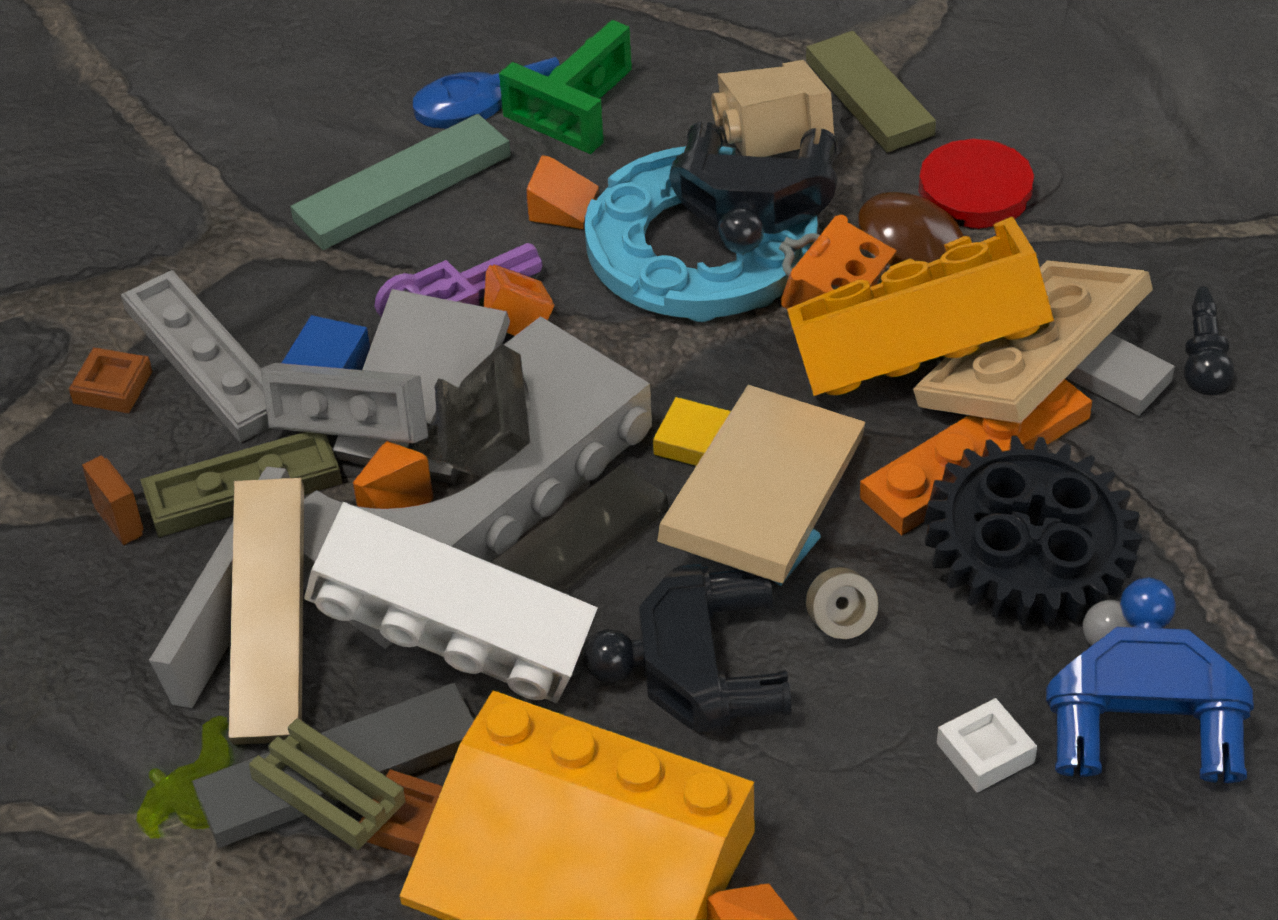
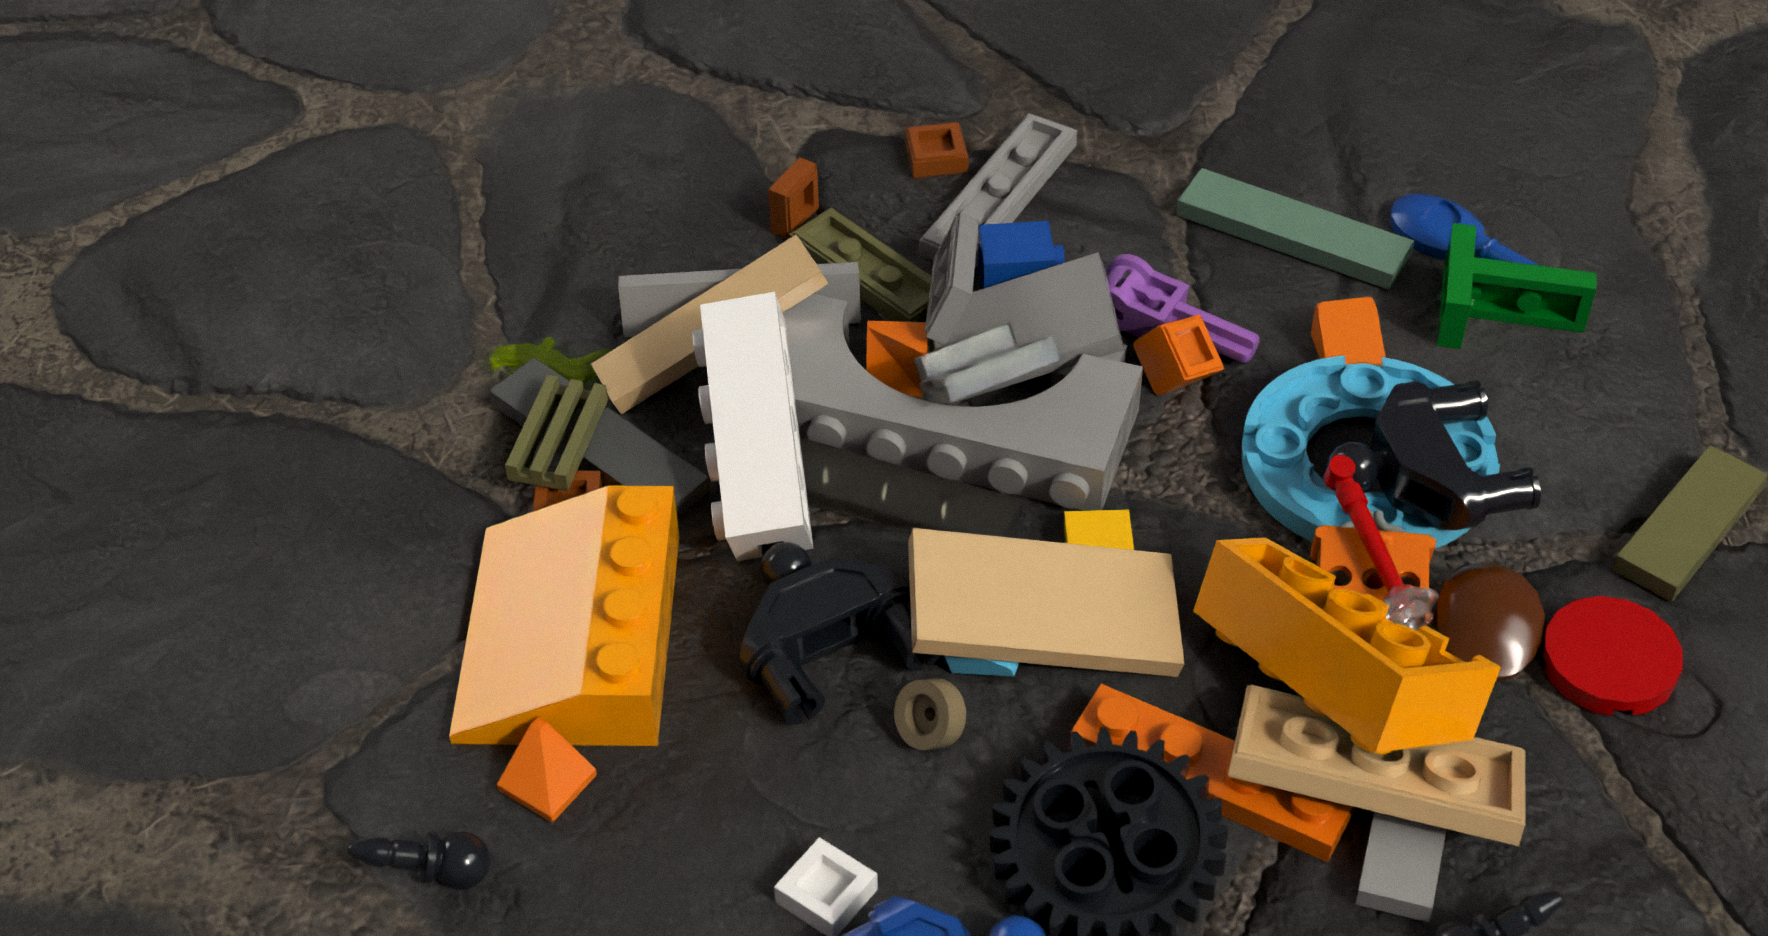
camera: 65 degrees right, 0 degrees up
(762, 232) = (1407, 603): none -> red piece
(772, 108) = (1569, 441): tan hips -> none

